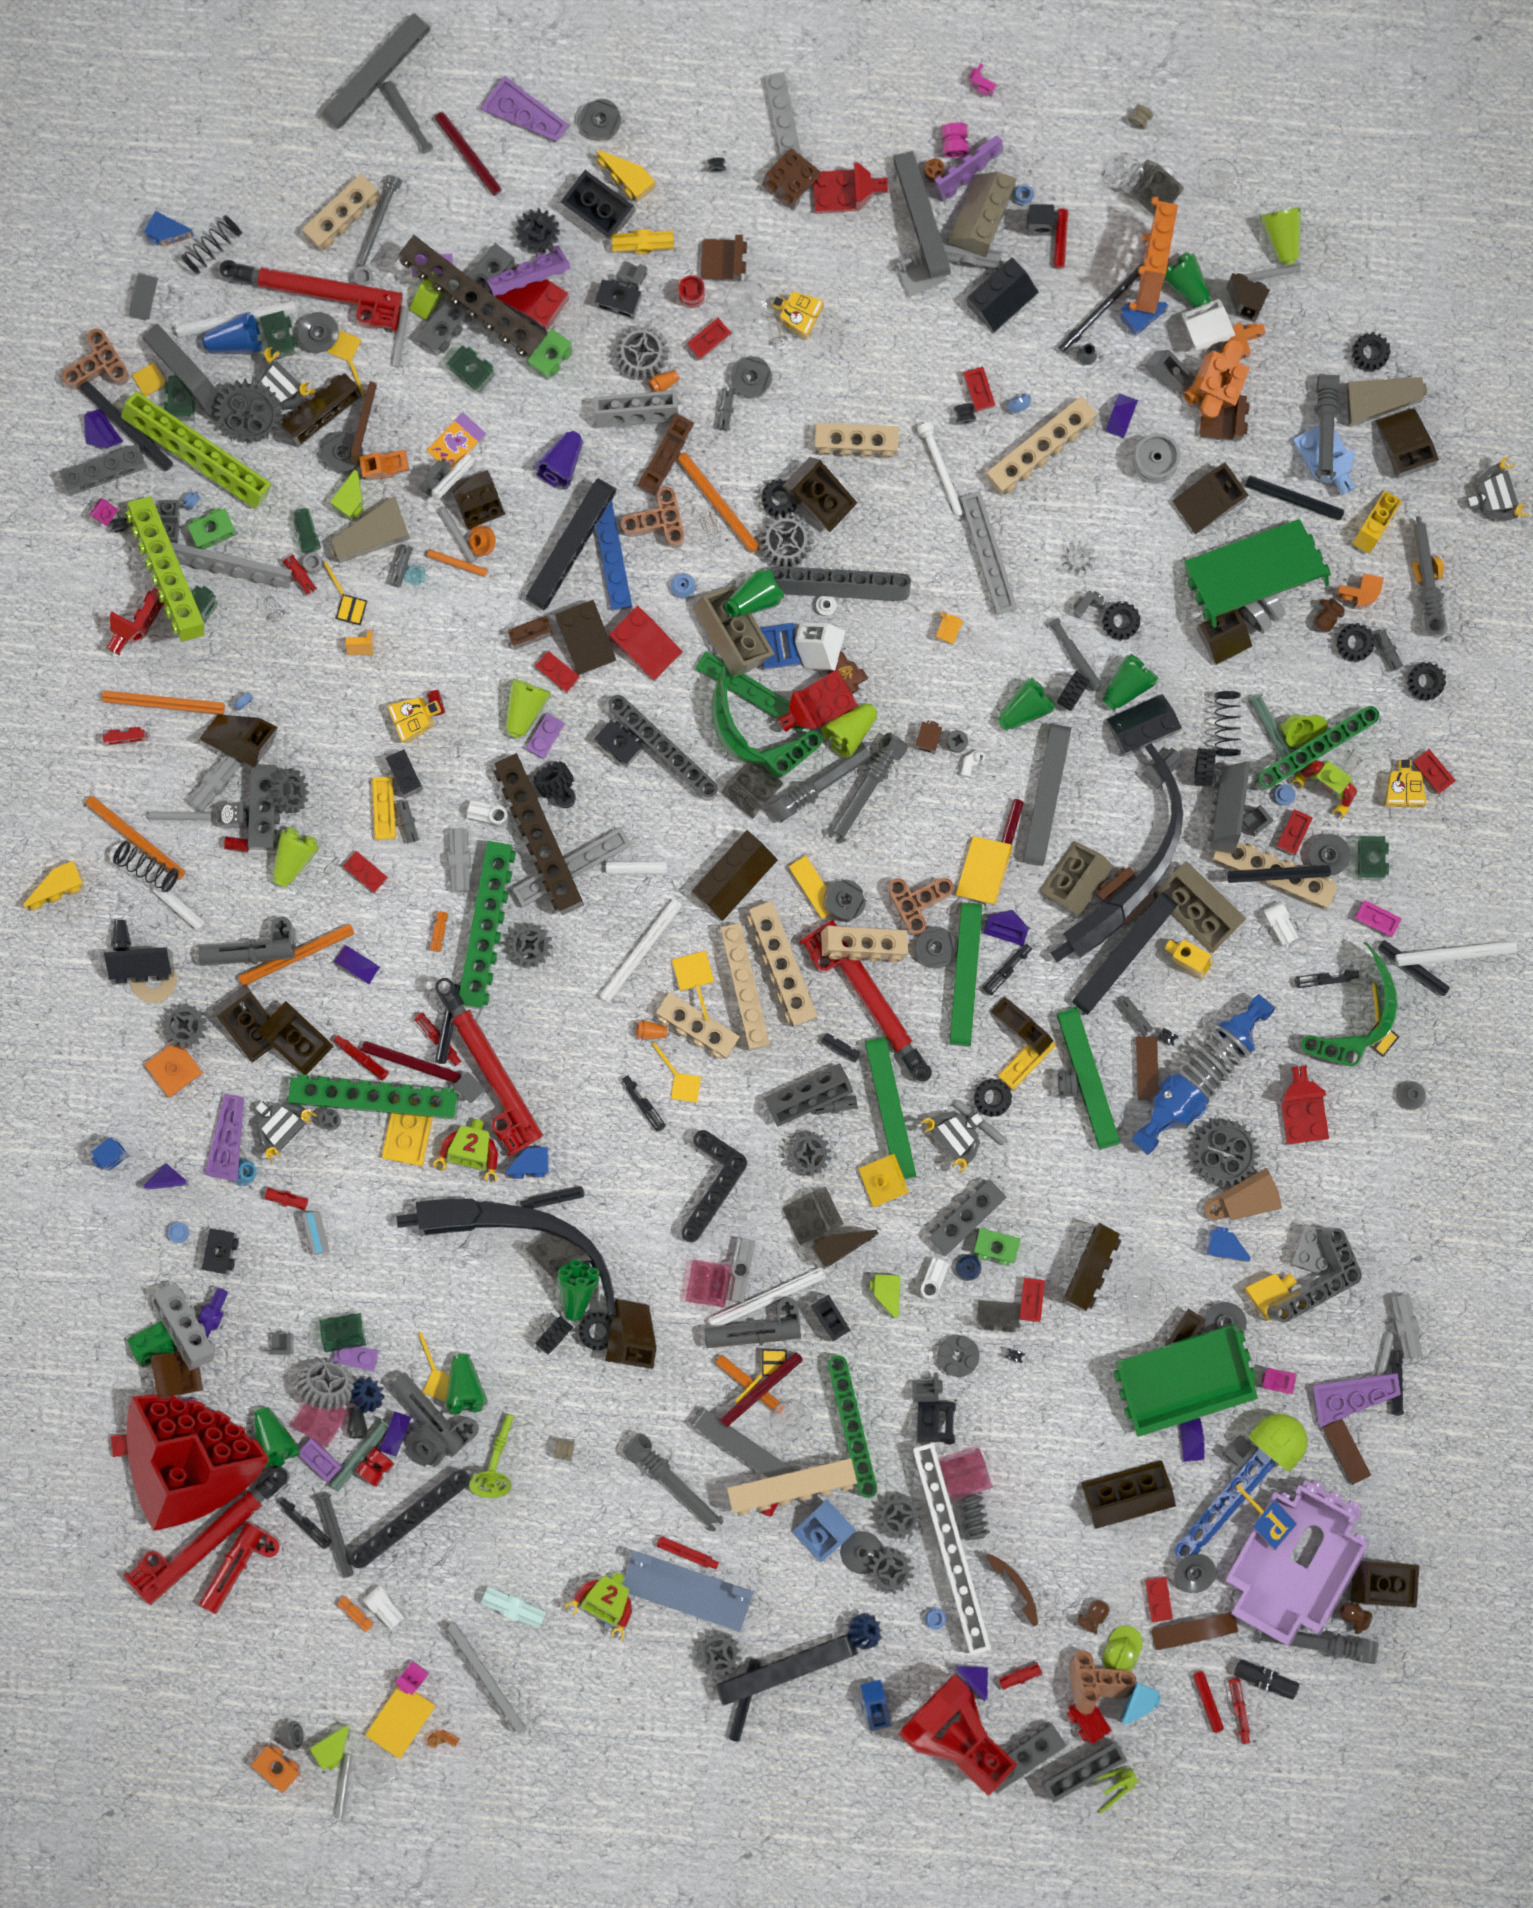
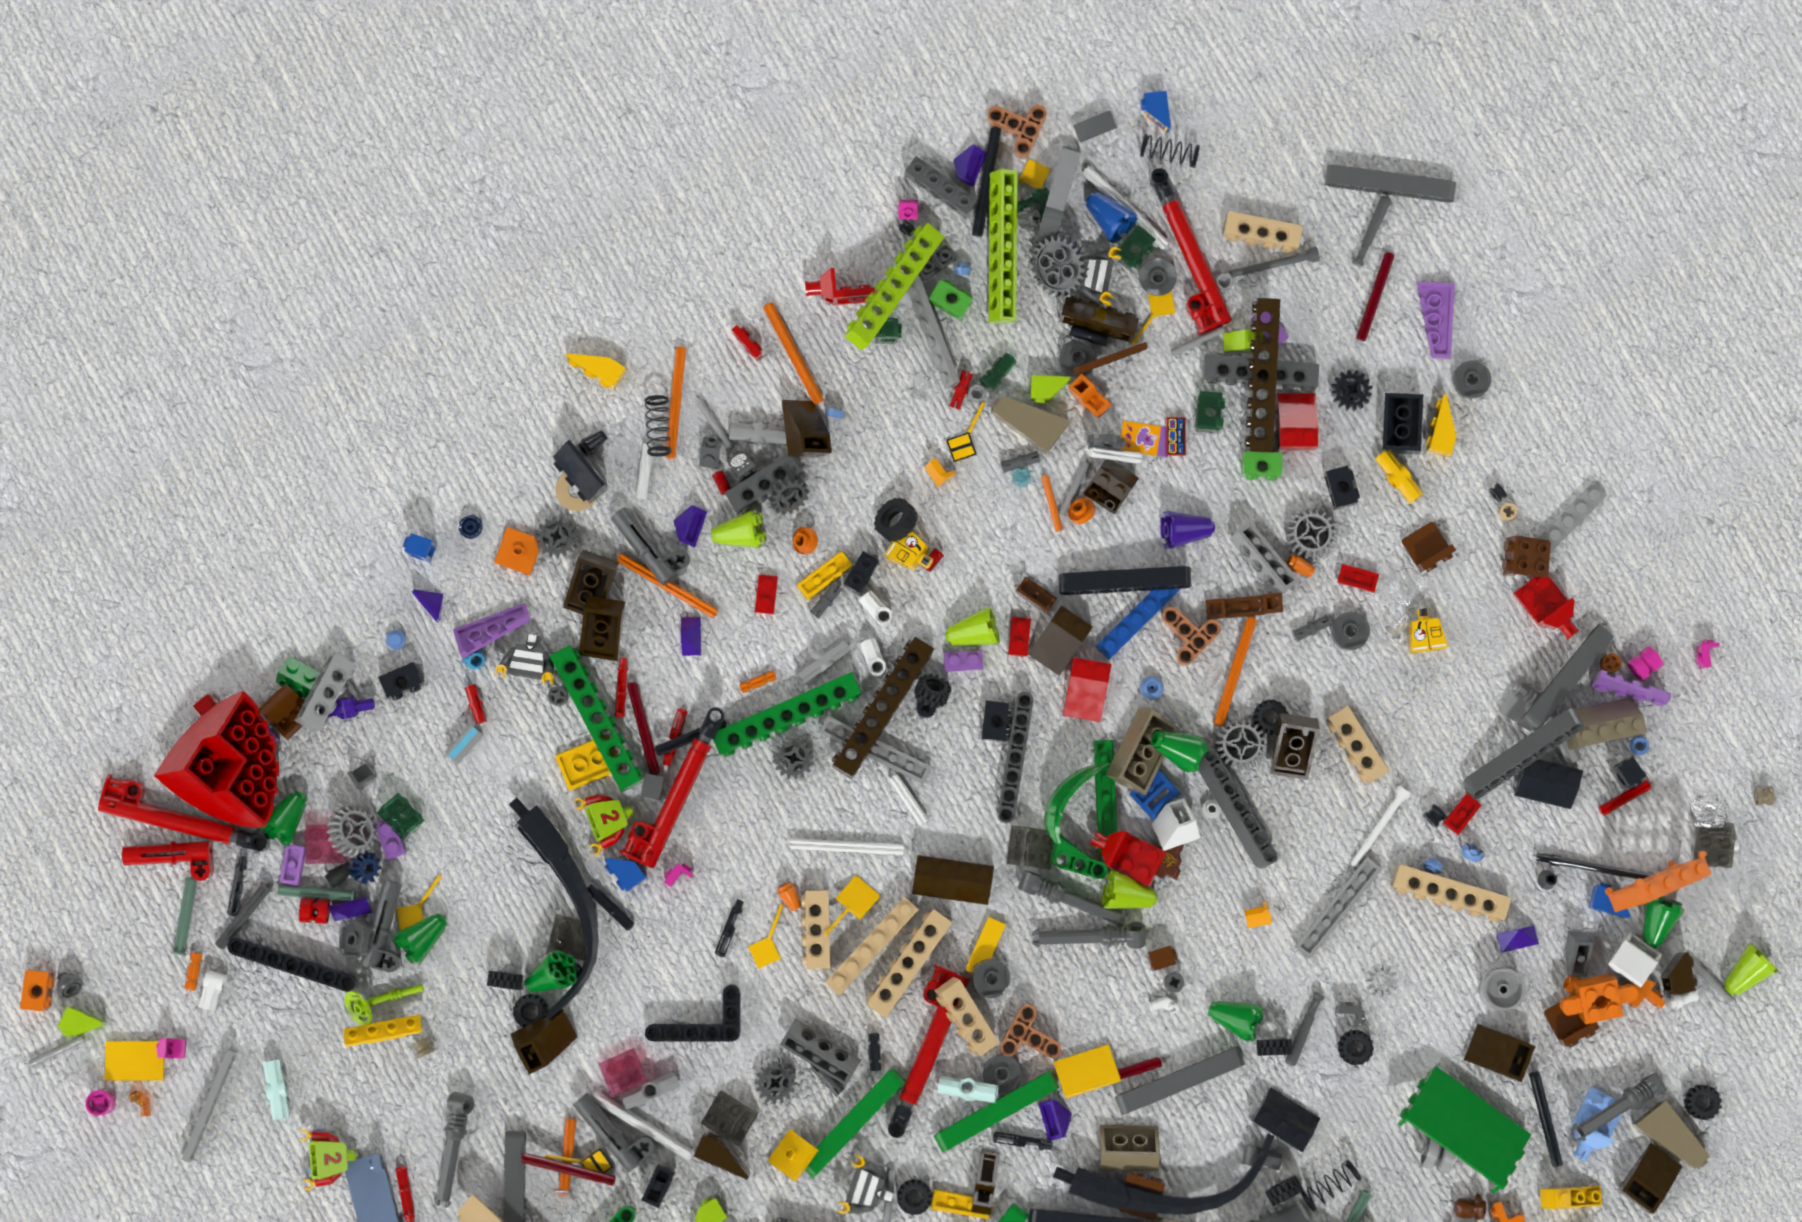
camera: 50 degrees right, 0 degrees up
(117, 1102) = (468, 521): none -> dark blue plate
(187, 409) = (1029, 219): none -> dark grey gear
(202, 836) = (710, 452): none -> dark grey bracket
(255, 898) = (689, 525): none -> dark purple slope
(300, 1589) = (185, 916): none -> sand green axle
(331, 427) = (1090, 336): none -> black piece
(340, 804) = (805, 540): none -> orange plate
(365, 712) = (904, 525): none -> black tyre
(417, 1775) = (100, 1102): none -> dark pink wheel
(443, 781) = (875, 608): none -> white piece
(472, 413) = (1175, 436): none -> tile
(525, 1474) = (382, 1030): none -> yellow bracket
(527, 272) = (1313, 405): medium lavender wing -> none
(561, 1122) = (673, 874): none -> dark pink bracket
(632, 274) = (1367, 485): dark grey panel -> none
(691, 291) = (1385, 540): red wheel -> none
(739, 161) = (1503, 515): none -> tan bush
(938, 976) = (956, 1087): none -> light aqua piece
(962, 297) = (1523, 753): none -> dark grey beam
(1008, 445) = (1432, 866): none -> medium blue plate
(1129, 682) = (1310, 1086): green cone -> none
(1227, 638) = (1397, 1140): dark brown slope -> none
(1269, 312) = (1679, 1000): none -> white animal

